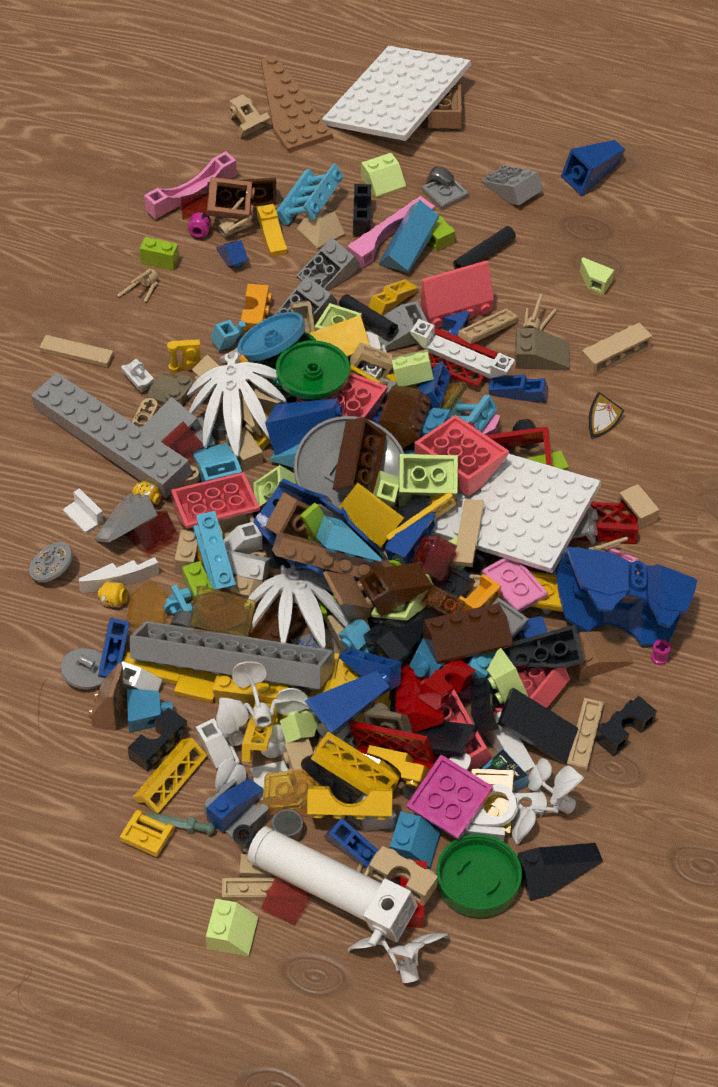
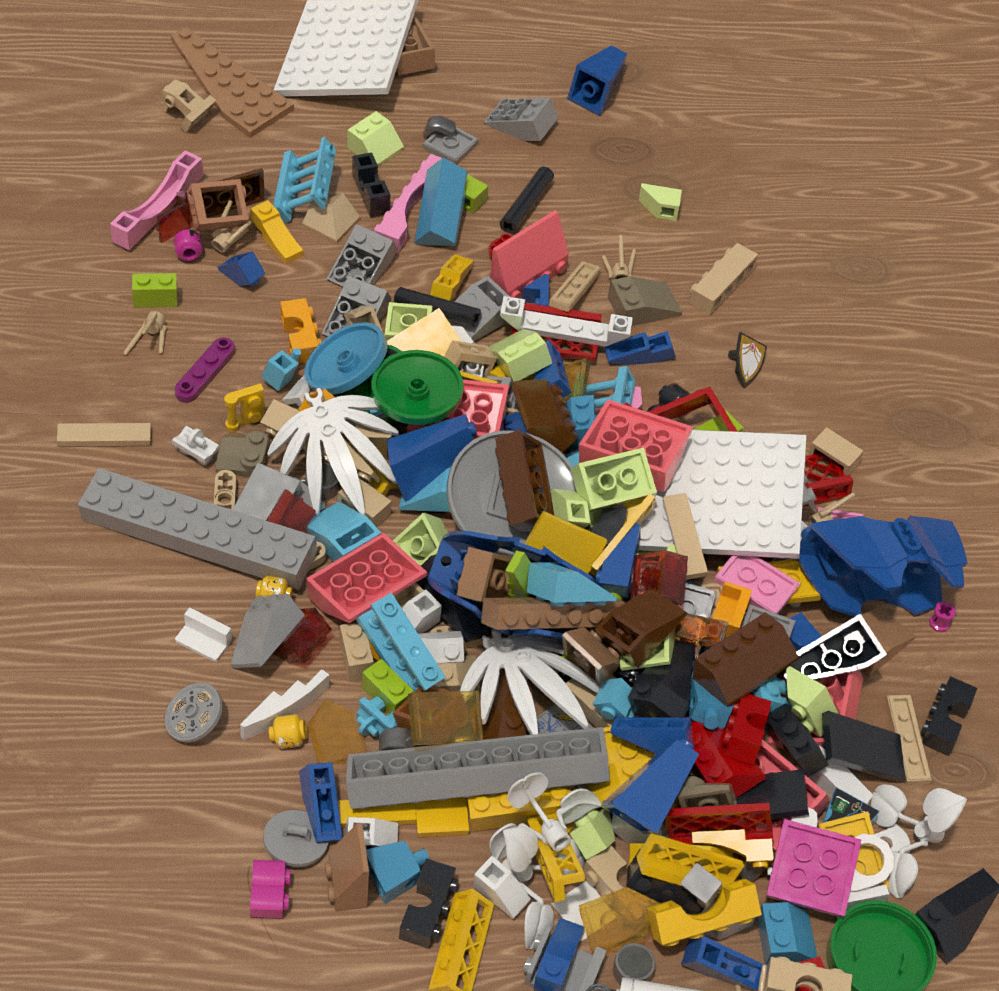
camera: 25 degrees left, 0 degrees up
(49, 696) = (268, 889): none -> dark pink brick
(171, 322) = (204, 370): none -> magenta plate
(353, 781) = (702, 885): none -> light grey panel

